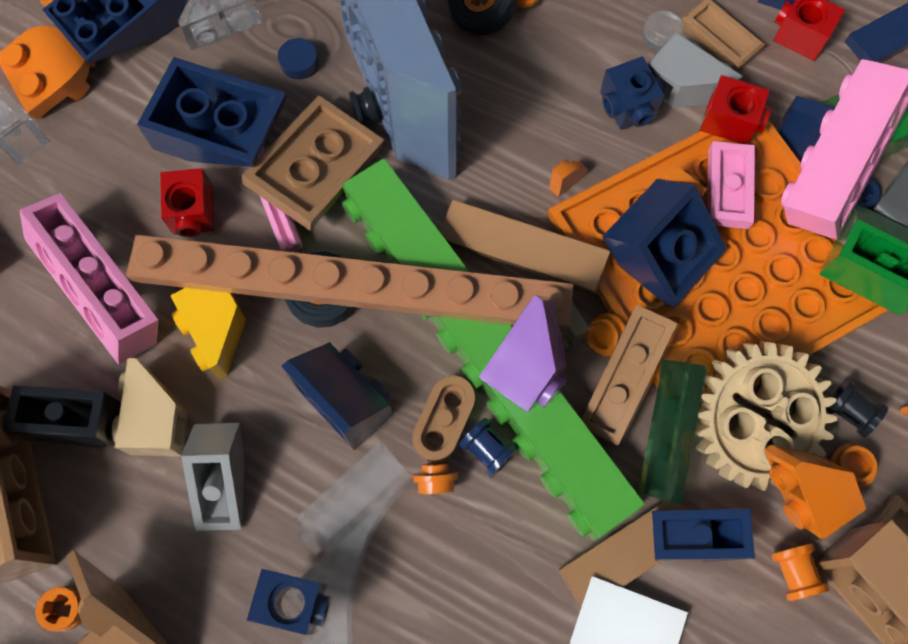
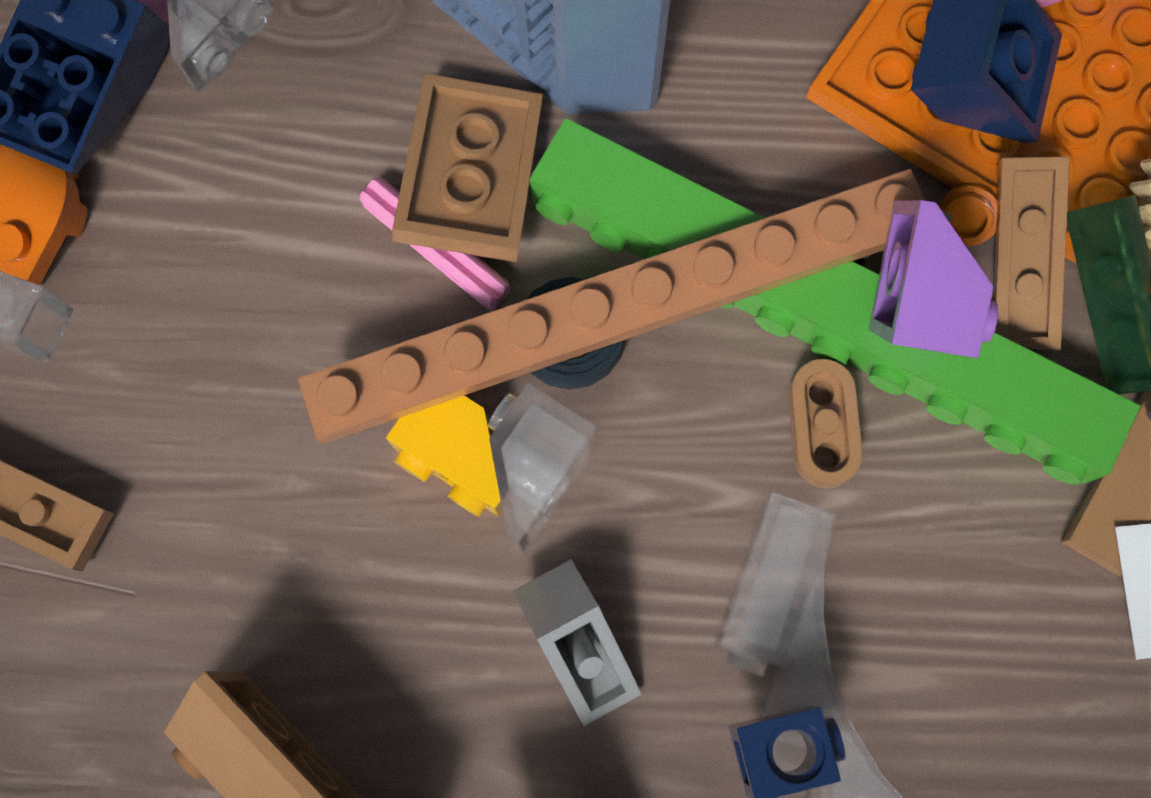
camera: 25 degrees left, 5 degrees up
(61, 416) = (332, 668): black brick -> none
(89, 278) = (254, 467): bright pink brick -> none
(149, 415) = (444, 606): tan slope -> none
(184, 187) = (311, 283): red brick -> none
(209, 115) = (299, 168): dark blue slope -> none
(242, 355) = (536, 459): none -> clear slope
(298, 58) = (358, 36): dark blue tile -> none
(340, 392) = (683, 456): dark blue slope -> none
(363, 106) = (488, 60): black bush -> none
(435, 478) = (858, 504): orange plate -> none
(488, 447) = (902, 432): dark blue bush -> none
(525, 246) = (808, 150): medium nougat tile -> none
(566, 175) = (803, 34): orange tile -> none

